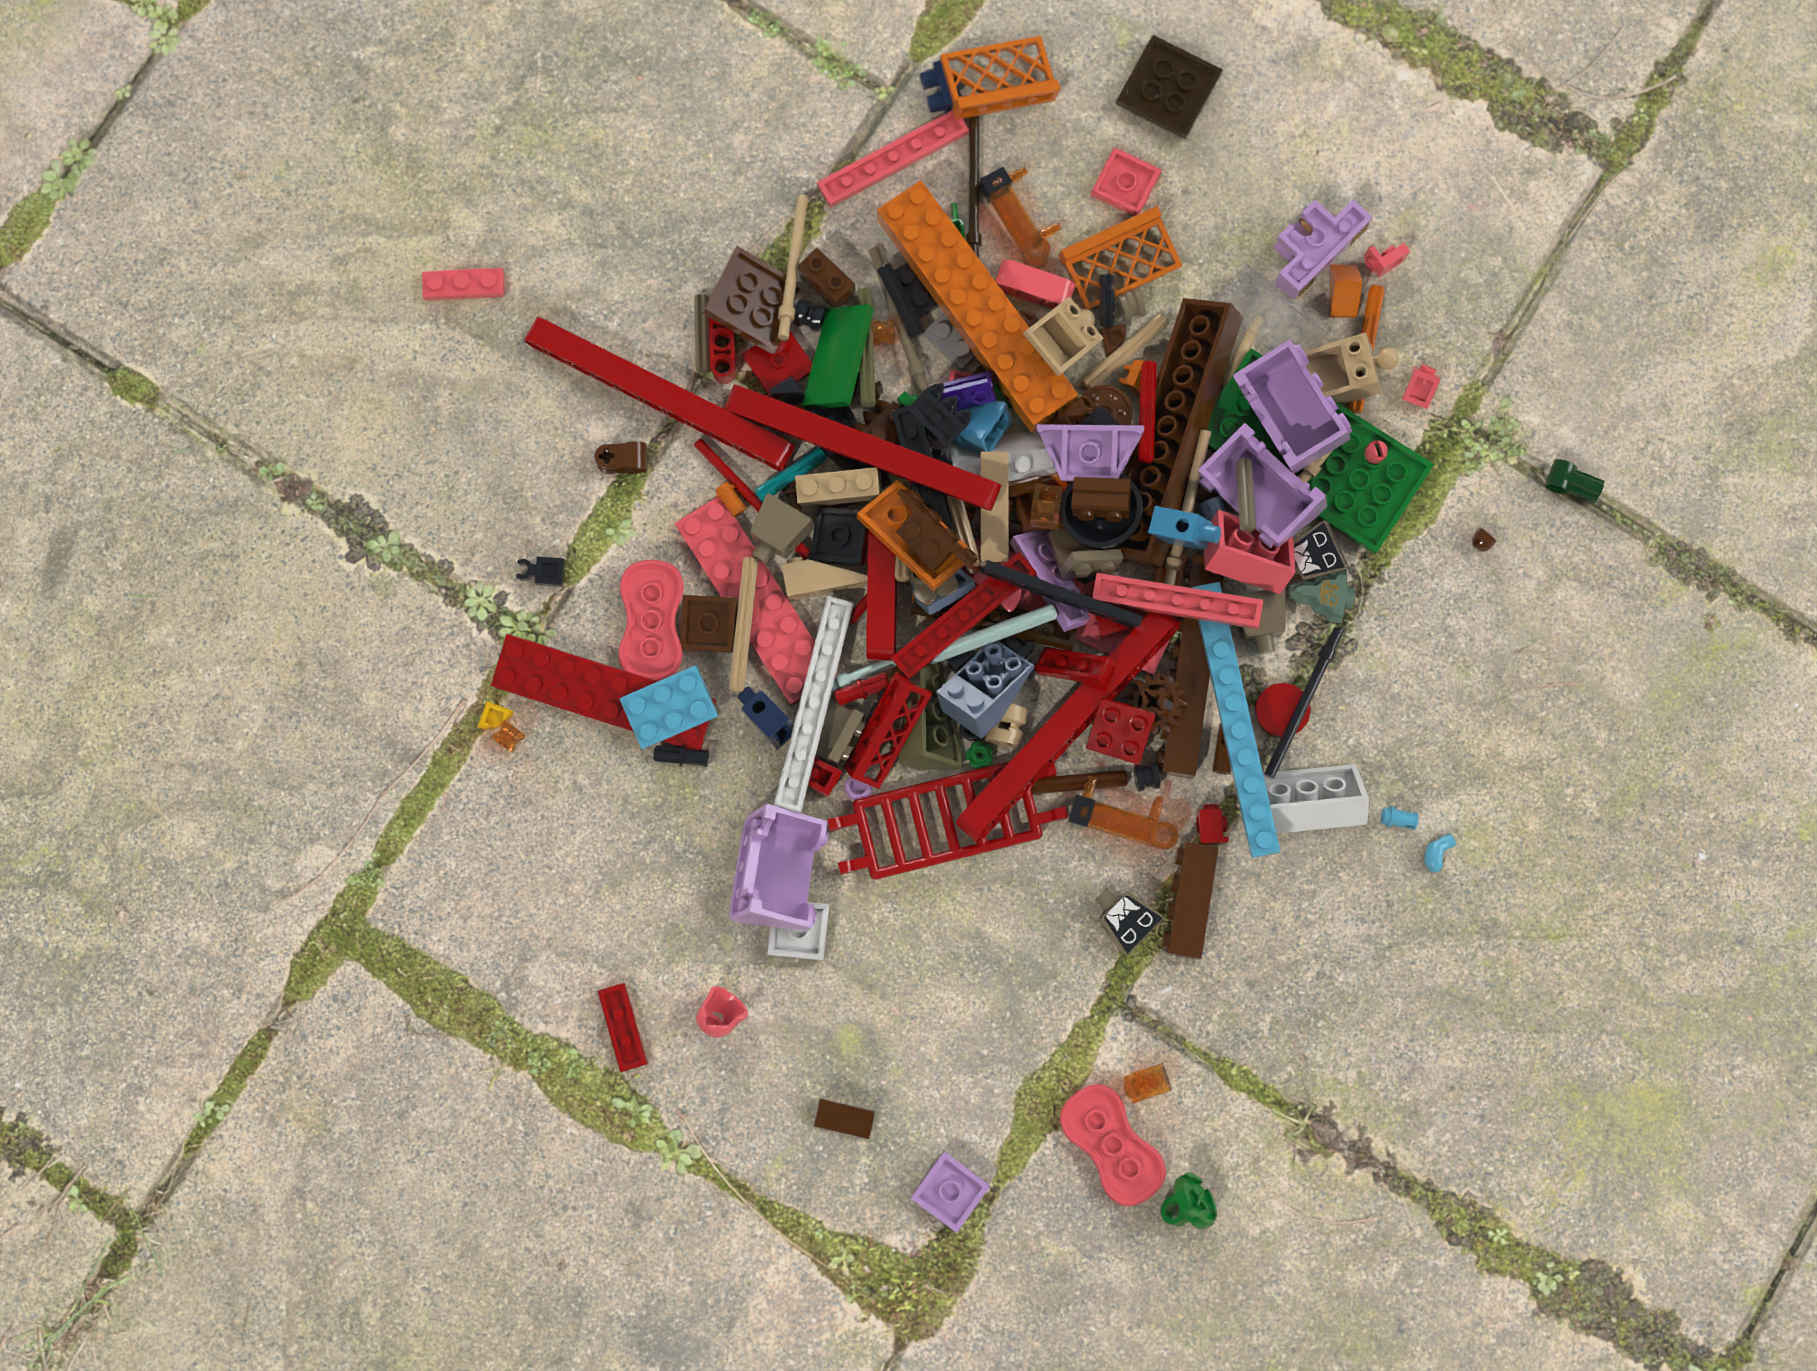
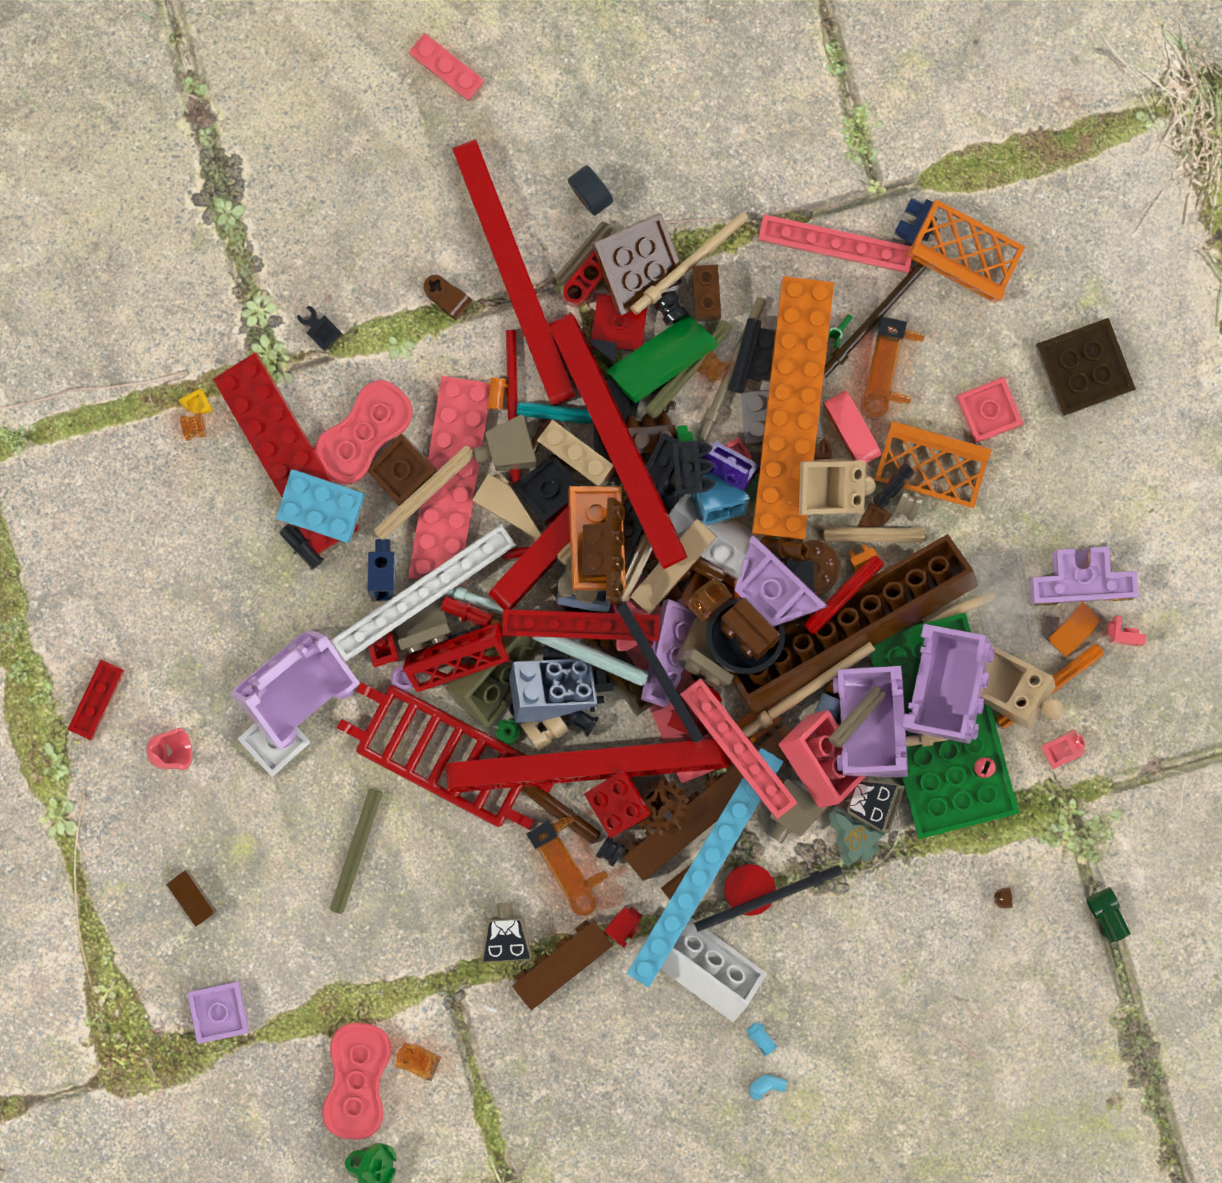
camera: 45 degrees right, 5 degrees up
(664, 277) = (590, 190): none -> black wheel
(944, 960) = (356, 851): none -> olive axle
(1032, 694) = (582, 721): none -> black bush
(1074, 666) = (627, 729): red tile -> none
(1183, 528) = (787, 702): dark azure torso -> none

